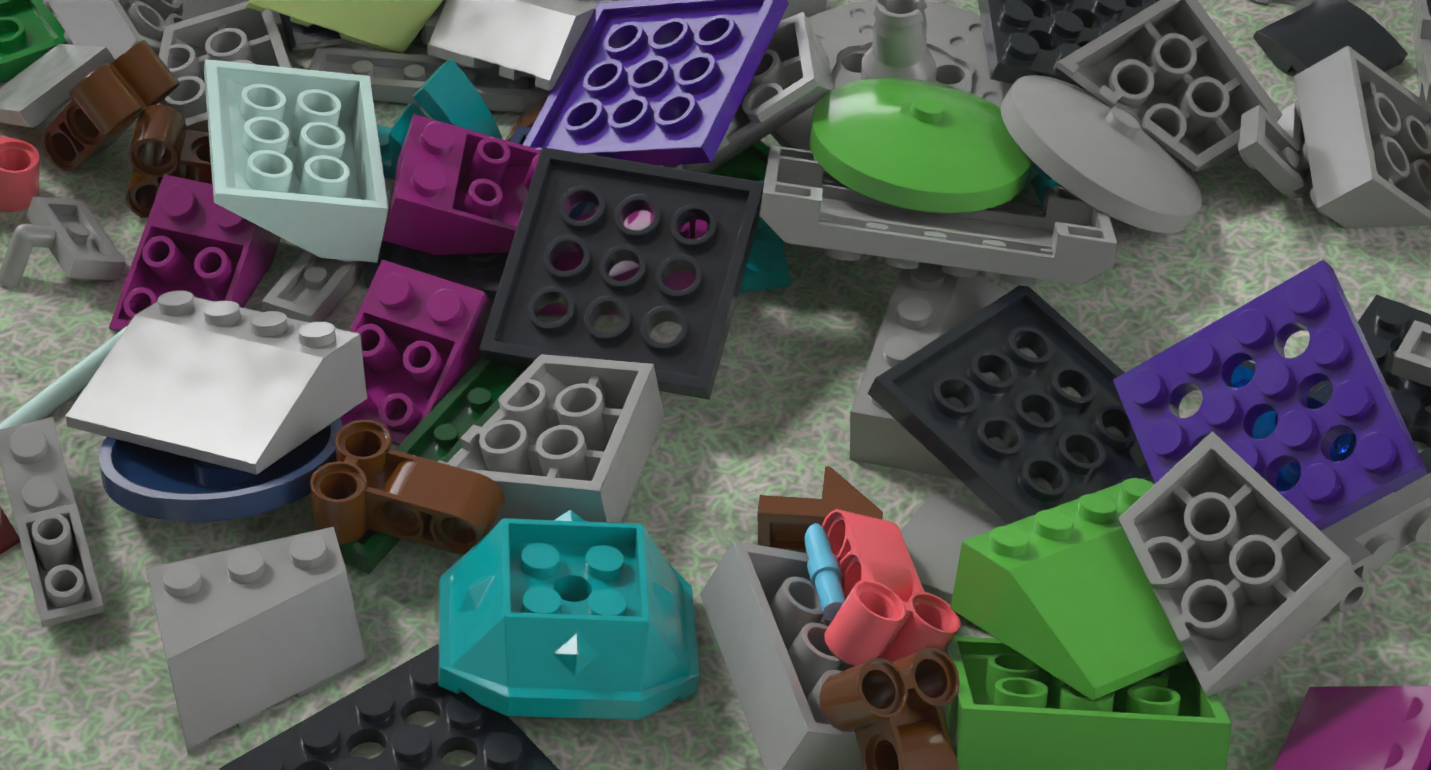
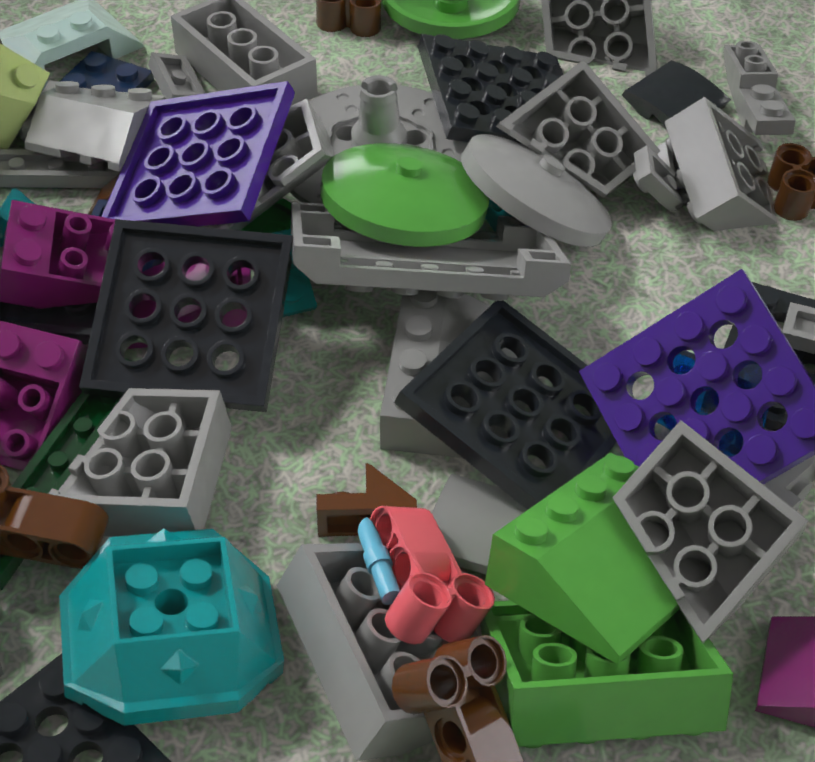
camera: 10 degrees left, 5 degrees up
(454, 100) = (48, 186): teal slope -> none

